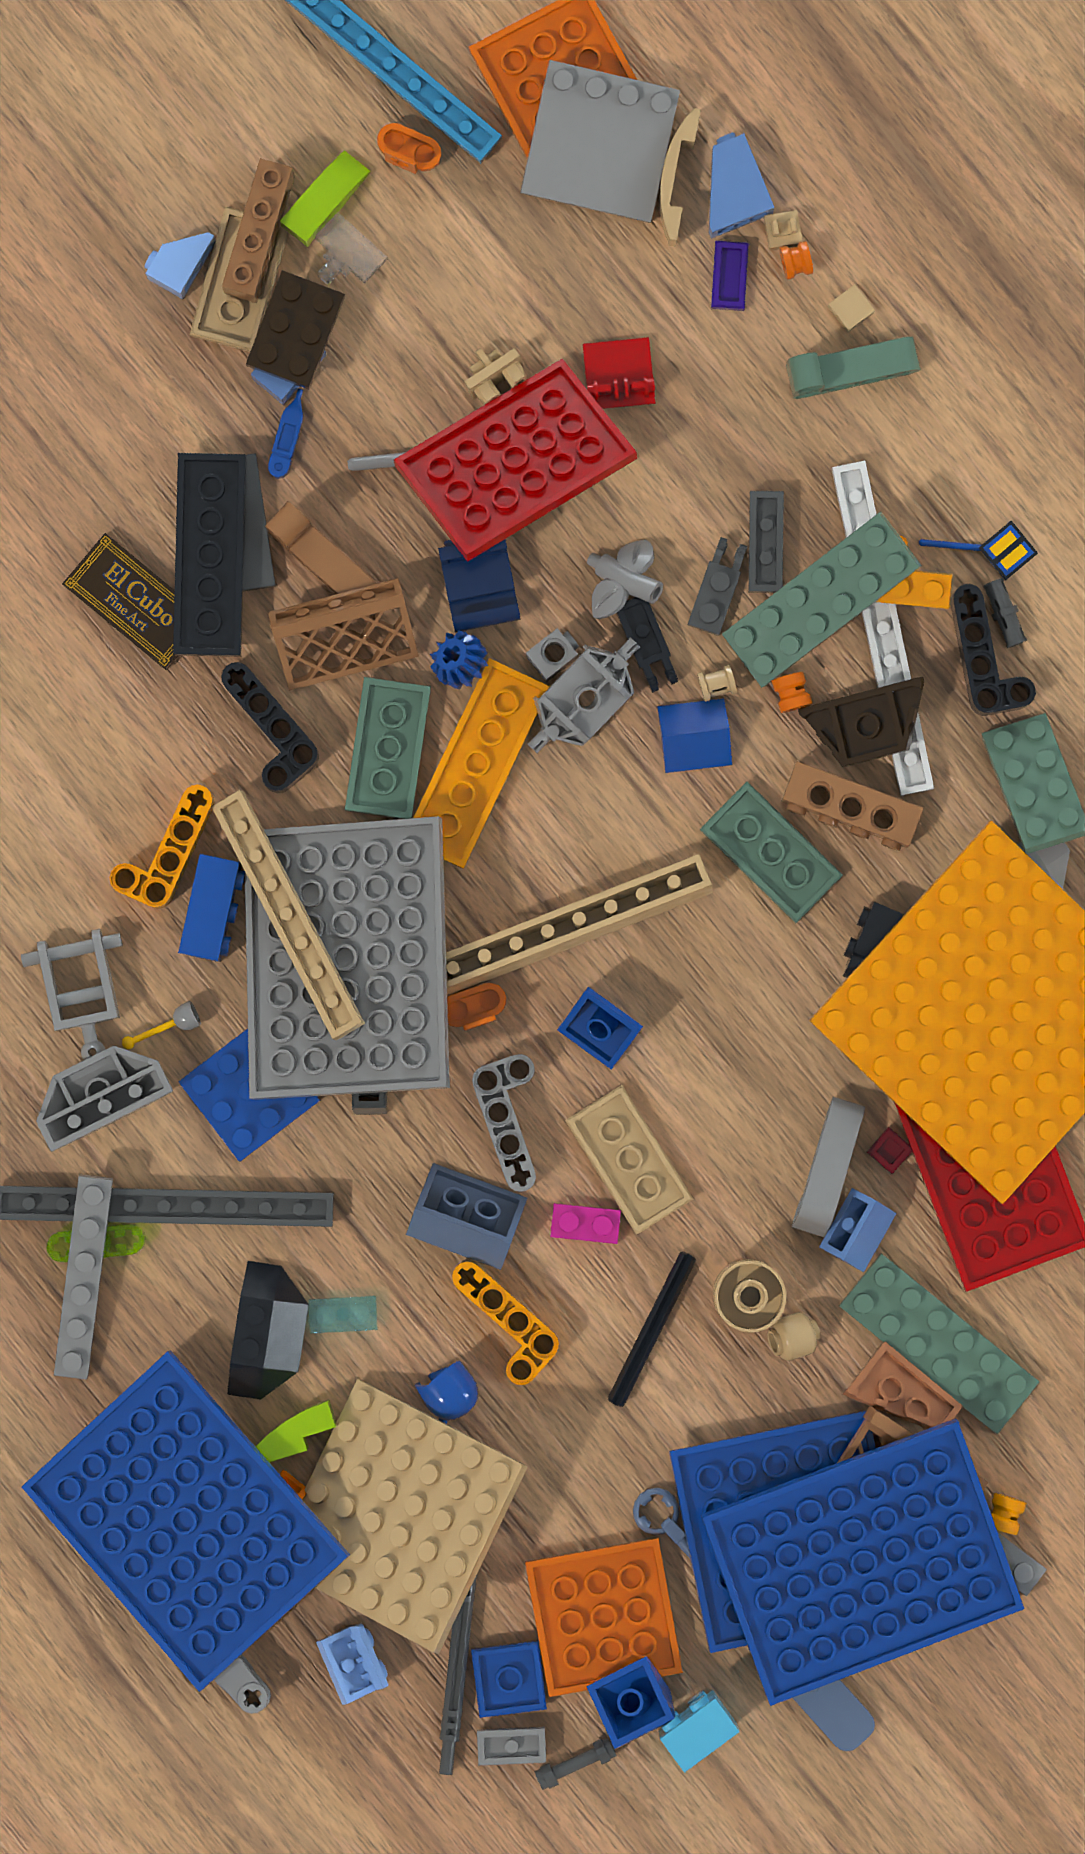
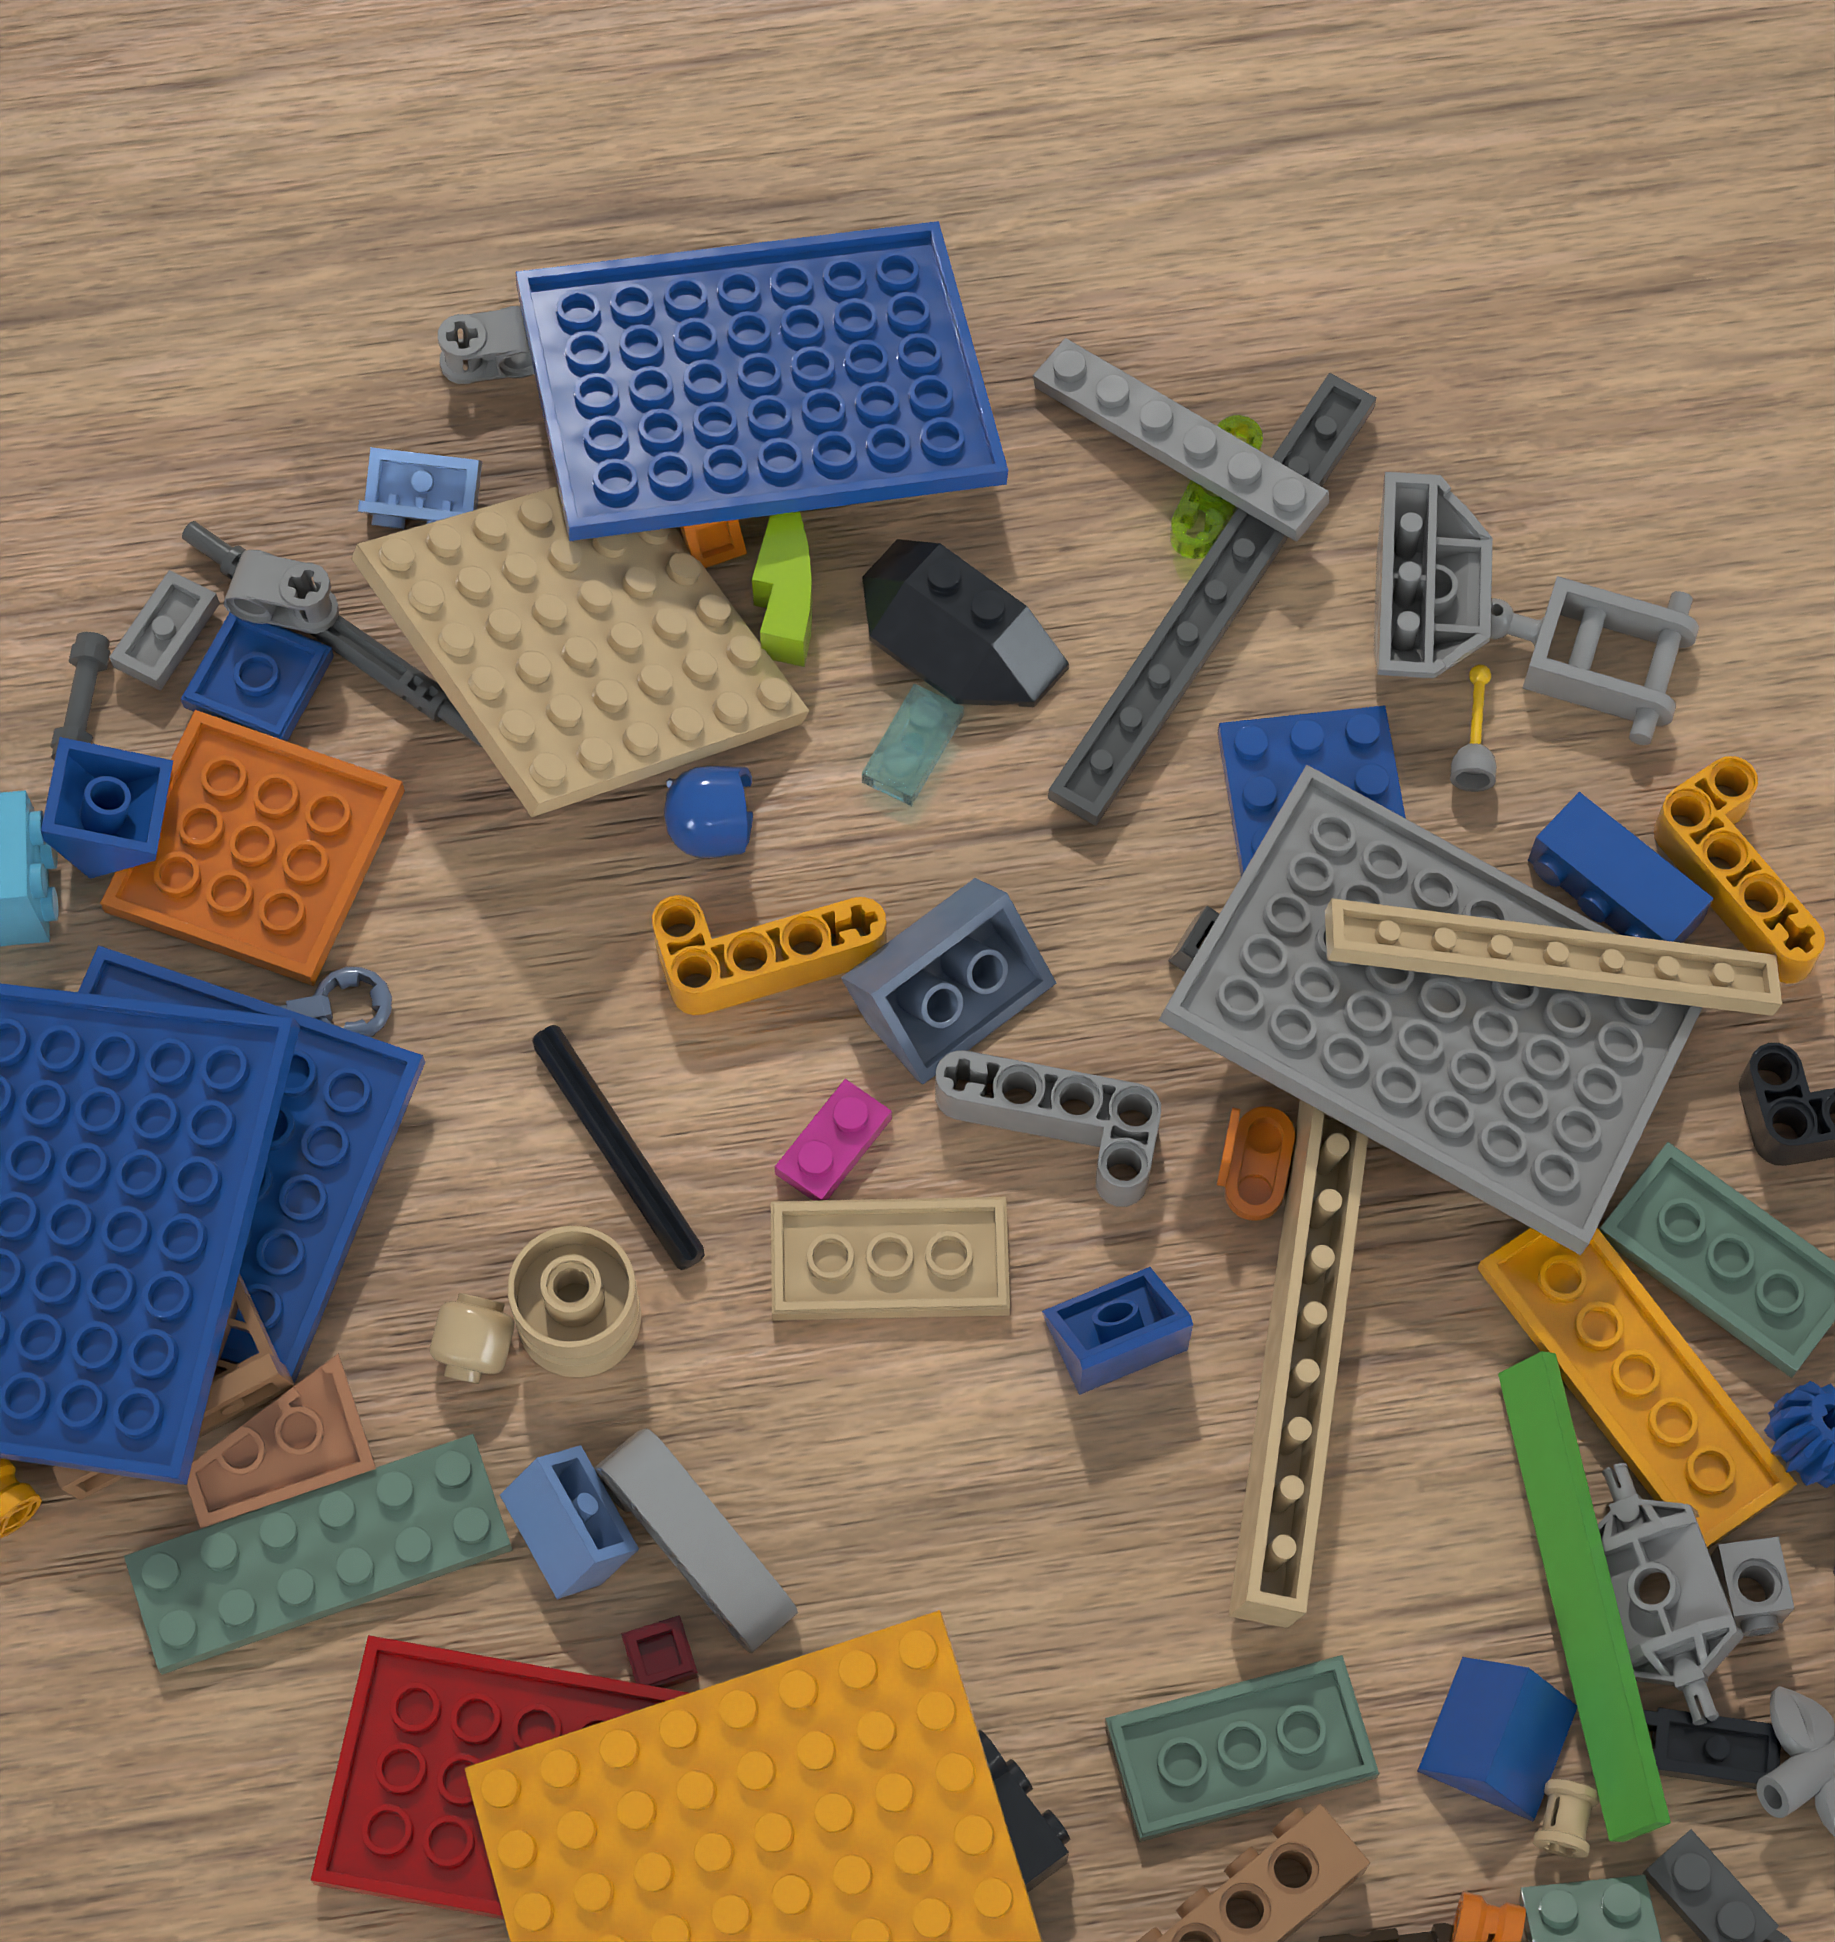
camera: 120 degrees right, 20 degrees down
(462, 1697) = (279, 591): none -> light grey piece
(606, 731) = (1583, 1599): none -> bright green tile

